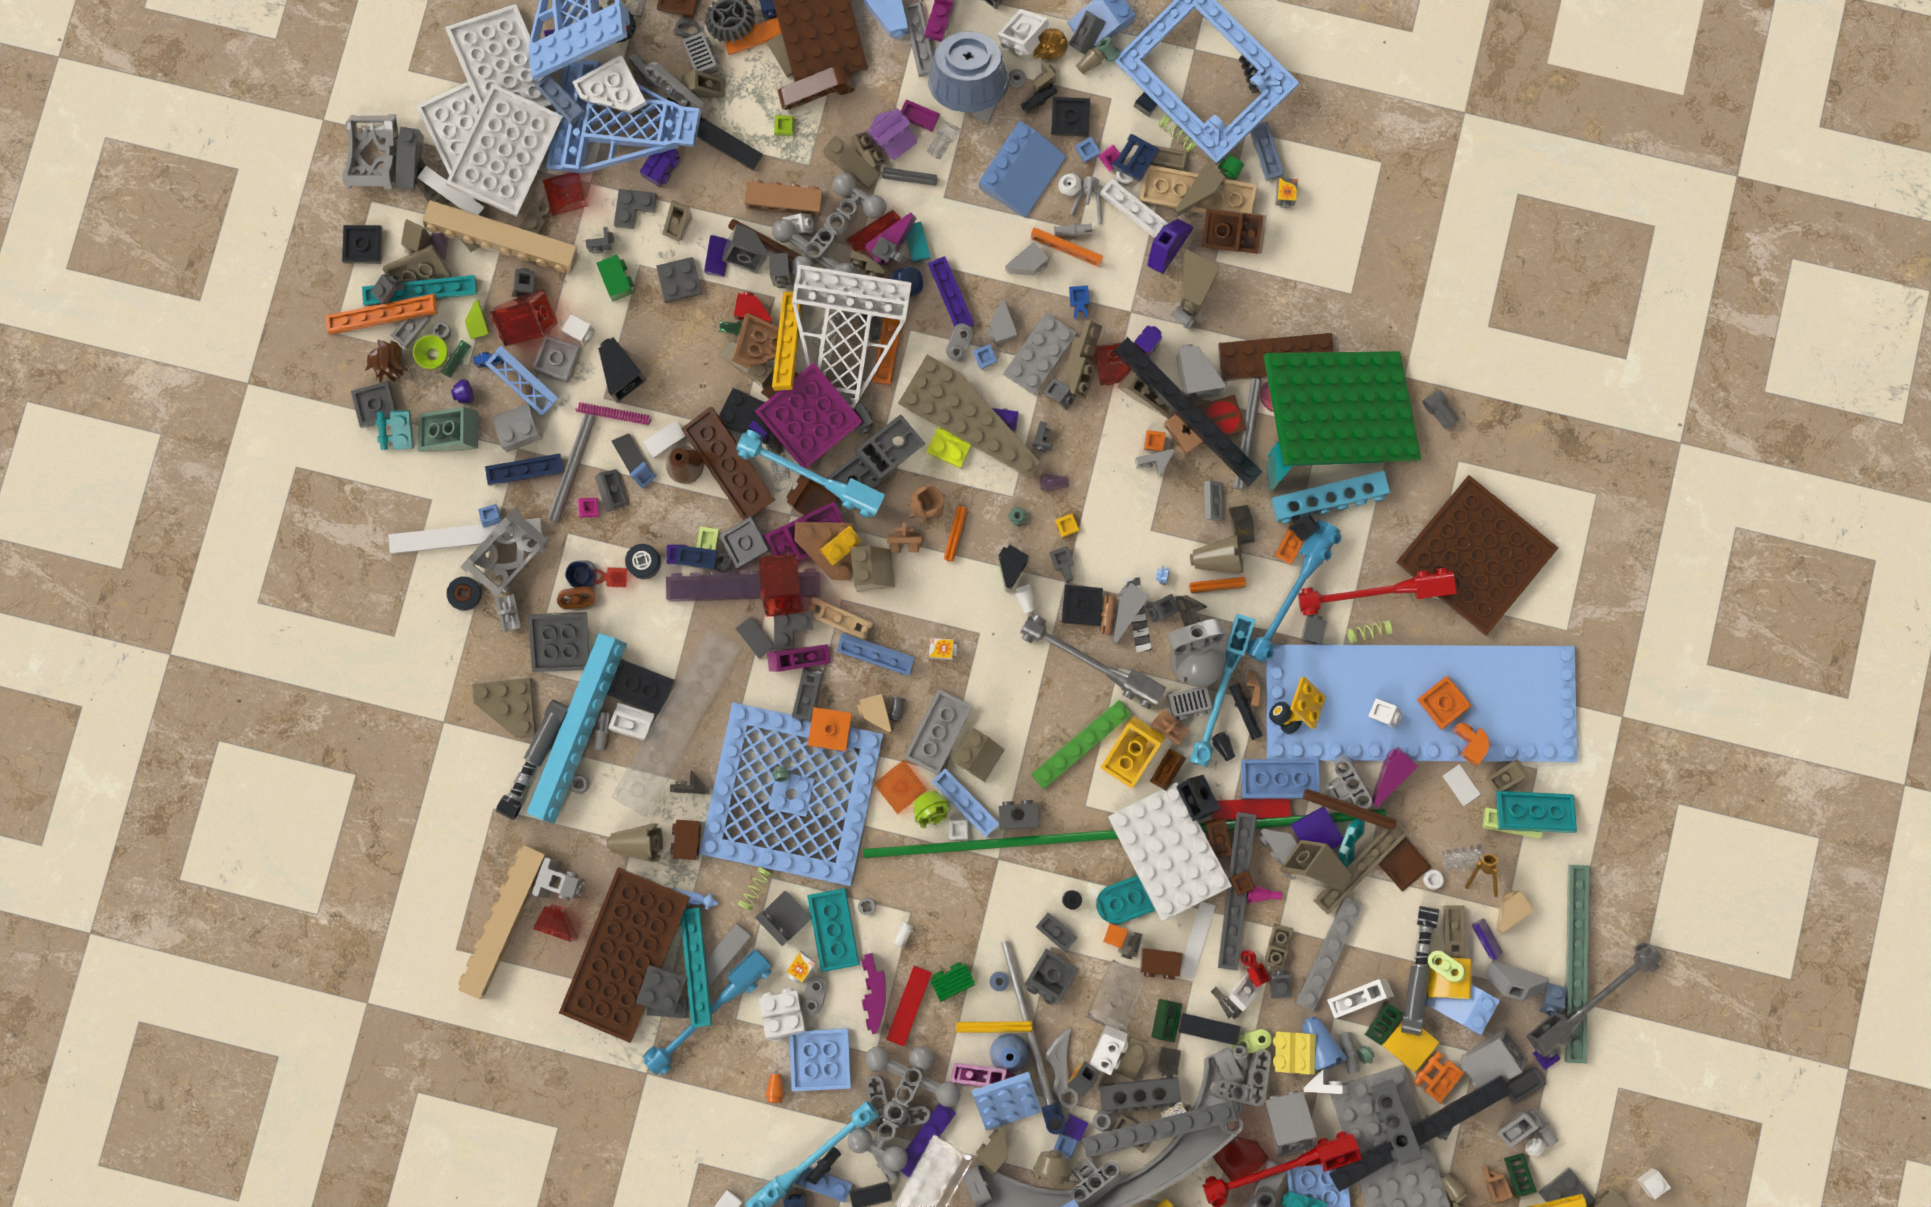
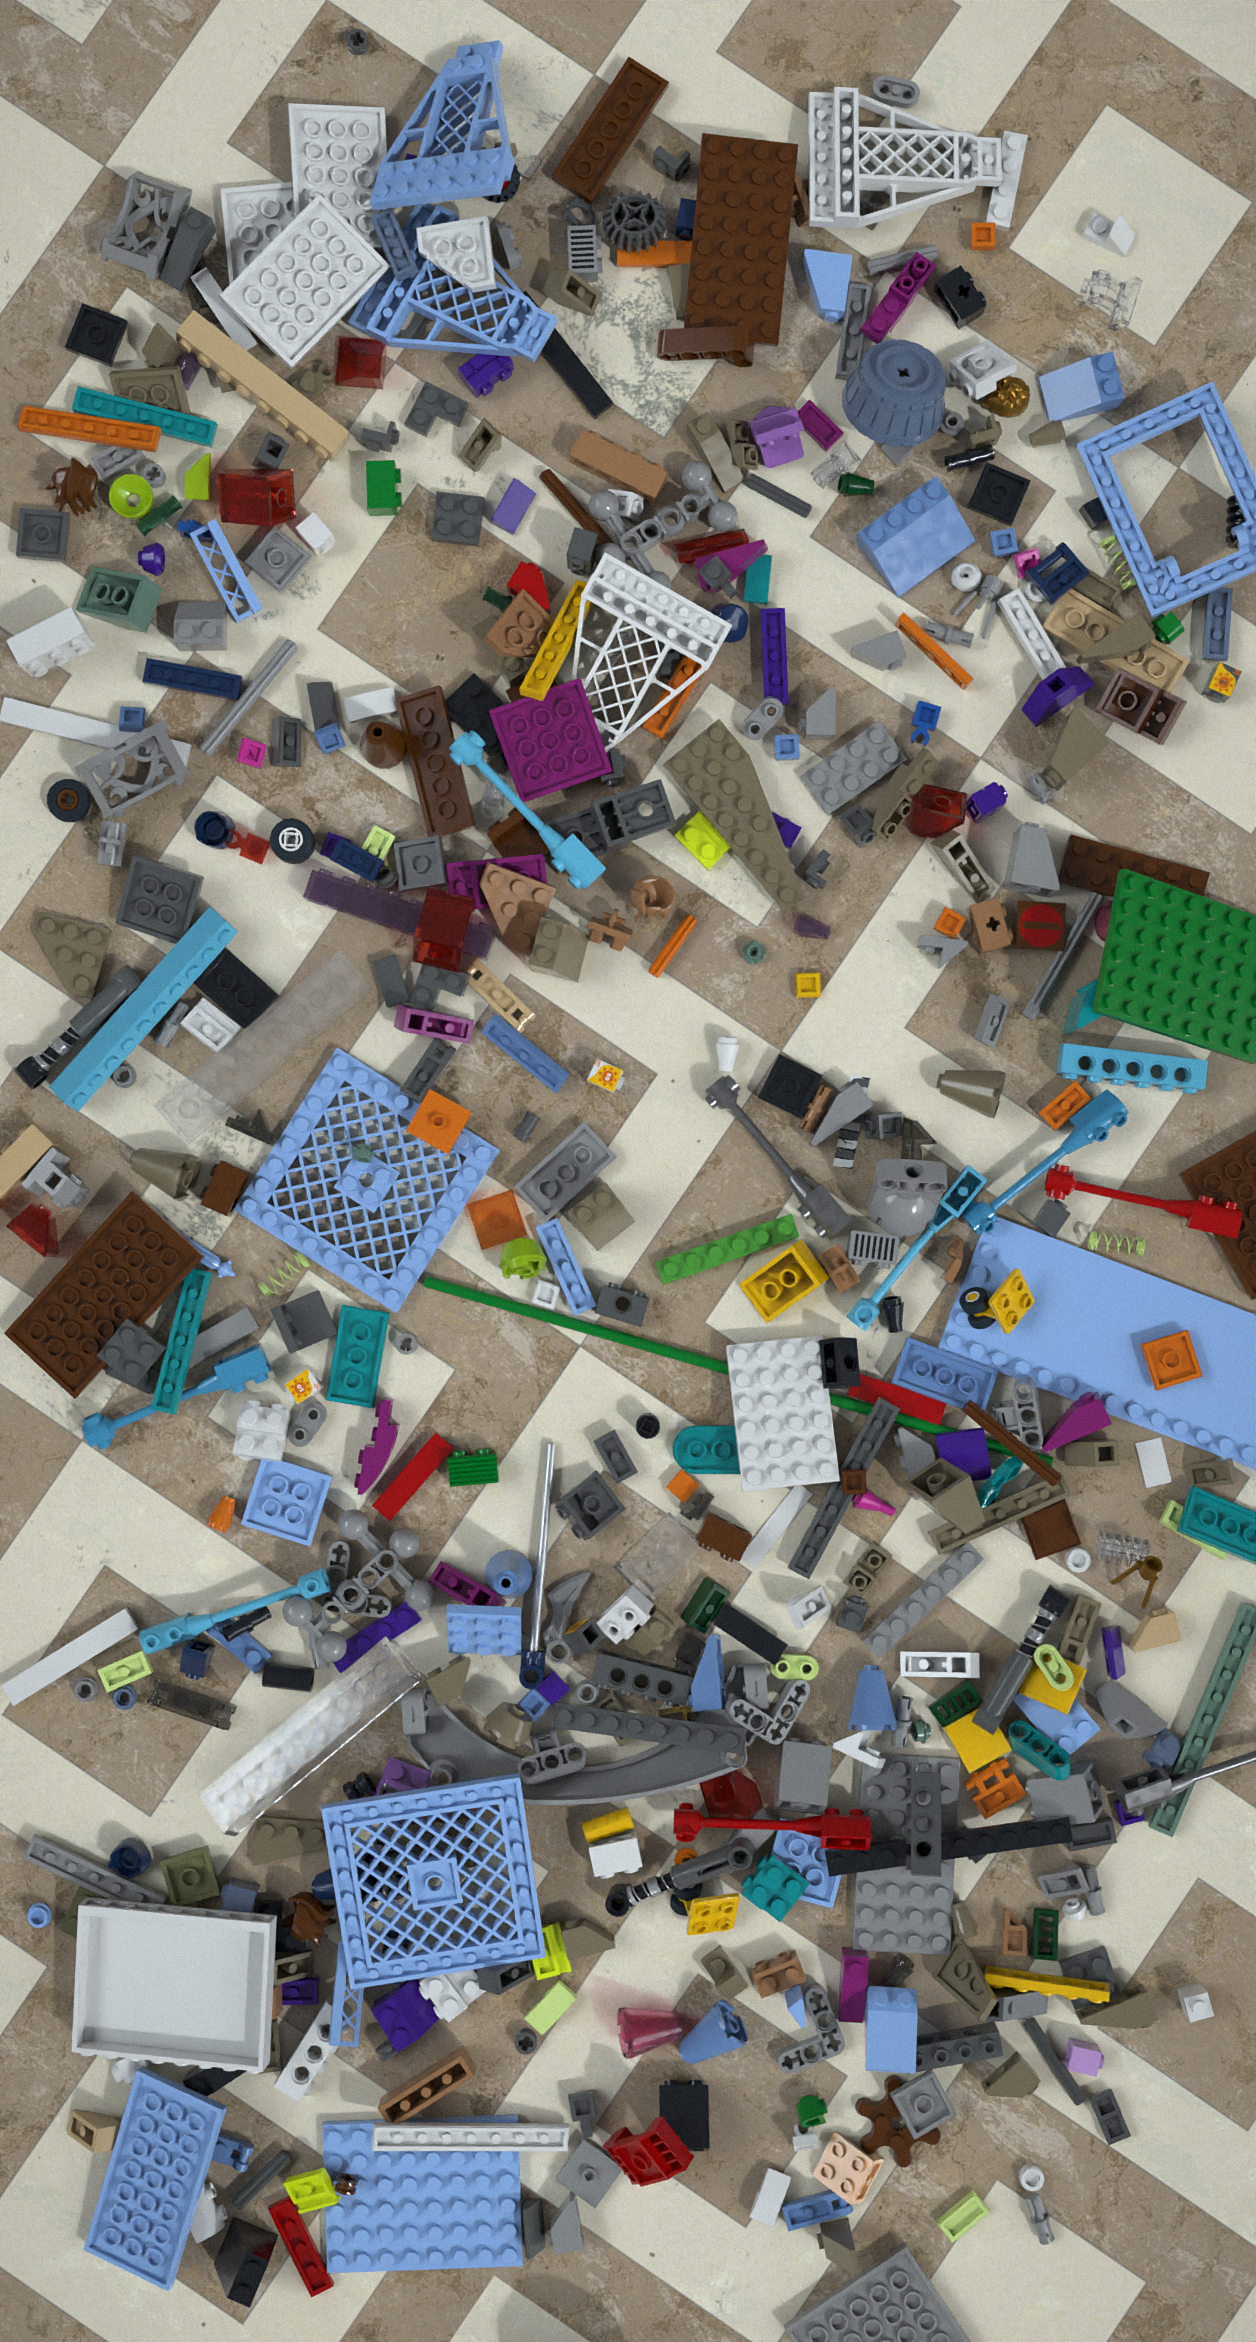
camera: 15 degrees right, 5 degrees up
(386, 287) = (105, 398): dark grey bracket -> none
(401, 429) = (63, 576): teal plate -> none
(410, 481) = (51, 643): none -> white brick
(577, 599) = (199, 856): dark orange plate -> none
(610, 416) = (295, 632): dark pink piece -> none
(619, 370) = (346, 601): black slope -> none
(660, 75) = (523, 259): light grey beam -> none
(744, 249) = (548, 511): dark grey slope -> none
(756, 428) = (485, 735): dark purple tile -> none
(784, 125) = (651, 377): lime tile -> none
(840, 545) = (531, 909): yellow plate -> none
(872, 268) = (692, 590): dark tan slope -> none
(875, 712) = (500, 1121): tan slope -> none
(903, 934) = (437, 1392): white pin -> none
(960, 149) = (853, 485): none -> dark green cone
(994, 976) = (528, 1480): sand blue plate -> none
(994, 1027) = (502, 1538): yellow axle -> none
(1011, 565) = (724, 1008): black slope -> none
(1062, 561) = (786, 1025): dark grey plate -> none
(1087, 32) = (1057, 398): dark grey slope -> none
(1108, 49) = (1075, 428): sand green bush -> none
(1162, 575) = (898, 1086): light blue plate -> none
(1168, 769) = (817, 1316): reddish brown plate -> none
(1187, 411) = (1002, 902): black plate -> none
(1191, 1077) = (708, 1685): none -> medium blue slope
(1219, 584) = (958, 1121): orange axle -> none
(1219, 837) = (846, 1418): reddish brown plate -> none
(1227, 1005) = (782, 1616): clear smoke cone -> none
(1240, 1054) = (775, 1678): light grey pin -> none
(1242, 523) = (1015, 1060): clear smoke slope -> none
(1247, 715) = (934, 1282): black pin -> none
(1256, 971) = (831, 1589): red plate -> none
(1294, 1052) = (839, 1699): light yellow plate -> none
(1304, 527) = (1088, 1092): black panel -> none
(1385, 713) = (1097, 1347): white bracket -> none
(1412, 794) = (1092, 1453): none -> dark tan slope
(1448, 1032) = (1043, 1760): none -> teal beam
(1477, 743) = (1191, 1423): orange brick -> none

